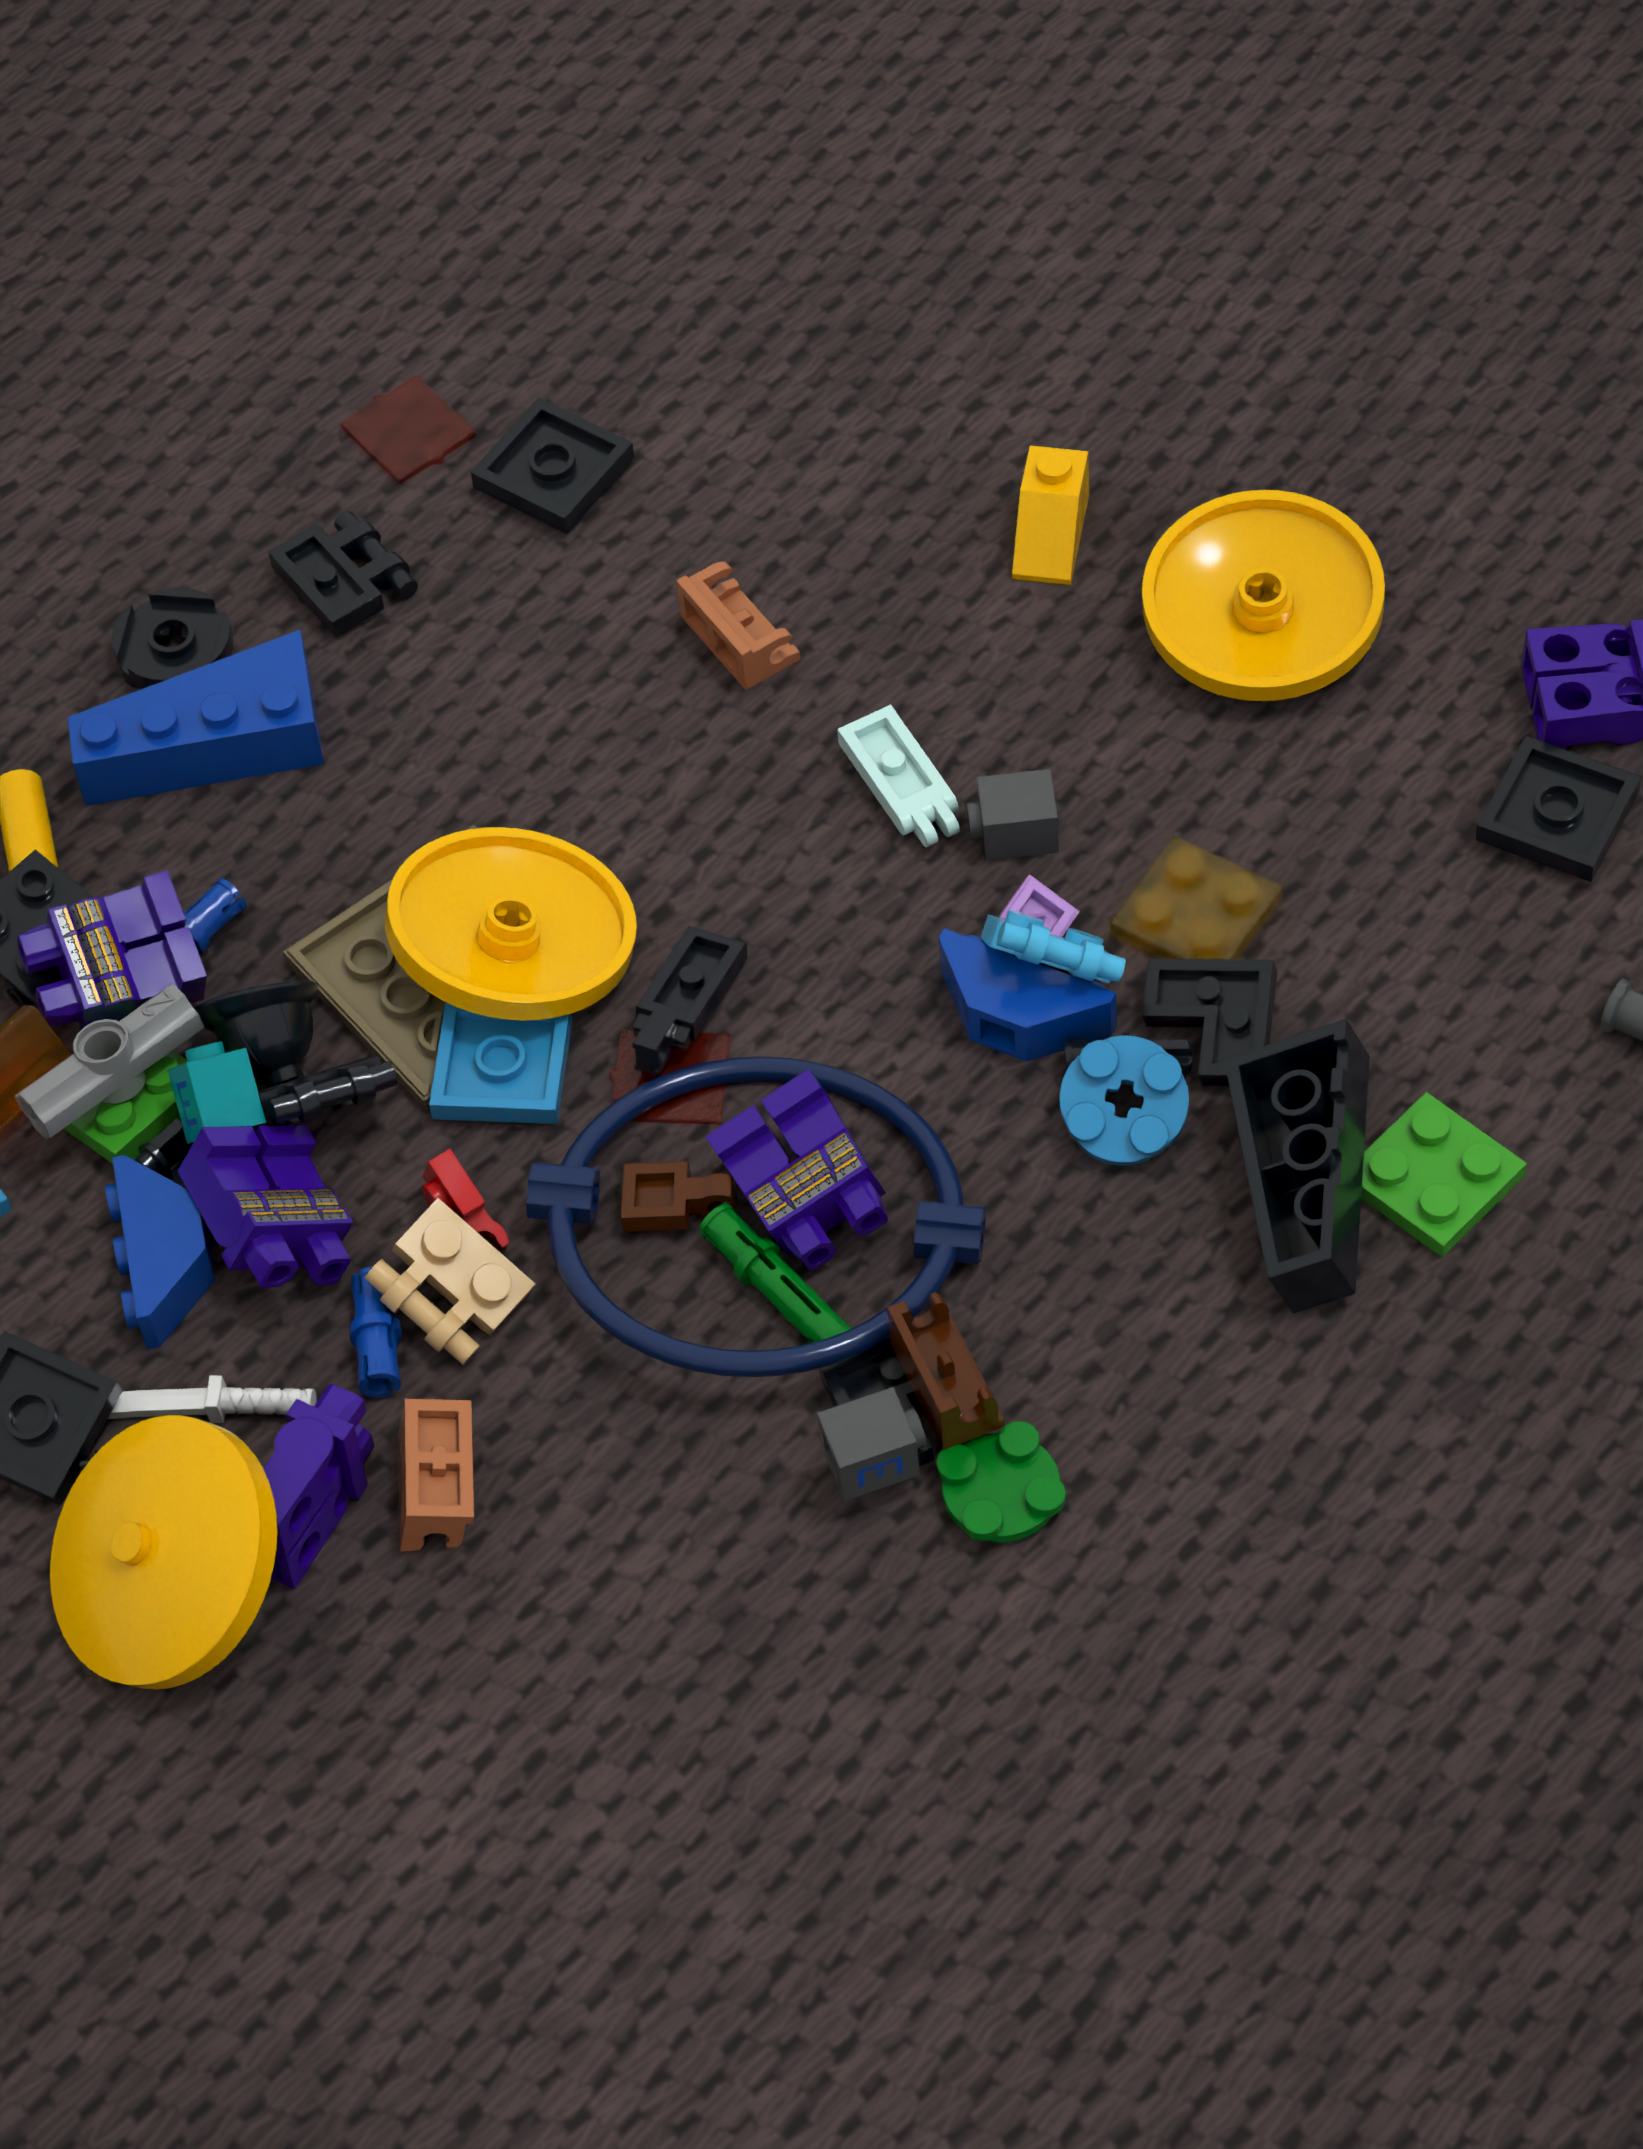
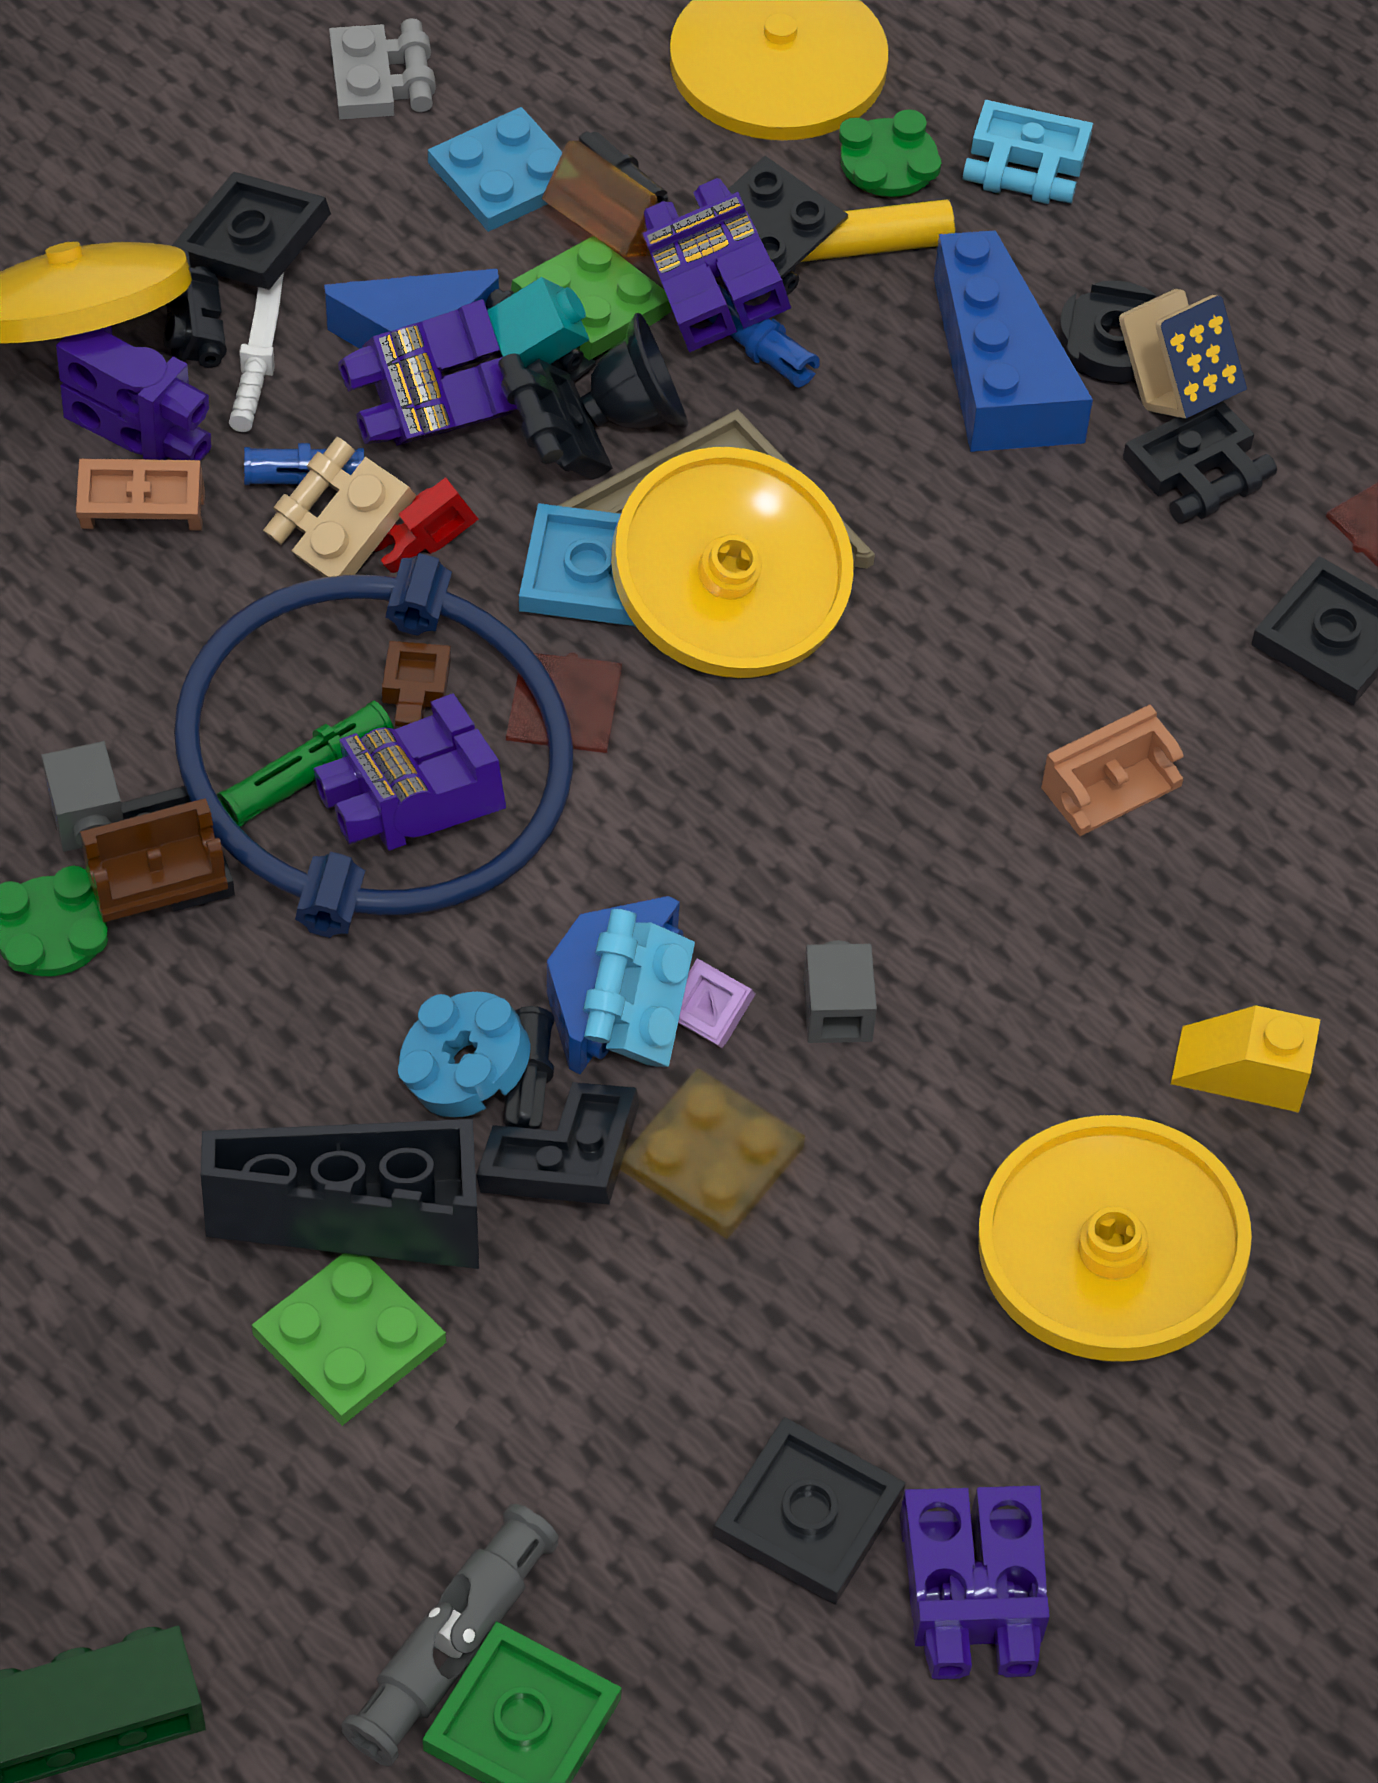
camera: 85 degrees right, 0 degrees up
(109, 1061) = (590, 256): light grey piece -> none
(232, 592) = (1182, 353): none -> piece
(684, 996) = (642, 702): black hinge -> none
(900, 775) = (905, 899): light aqua hinge -> none

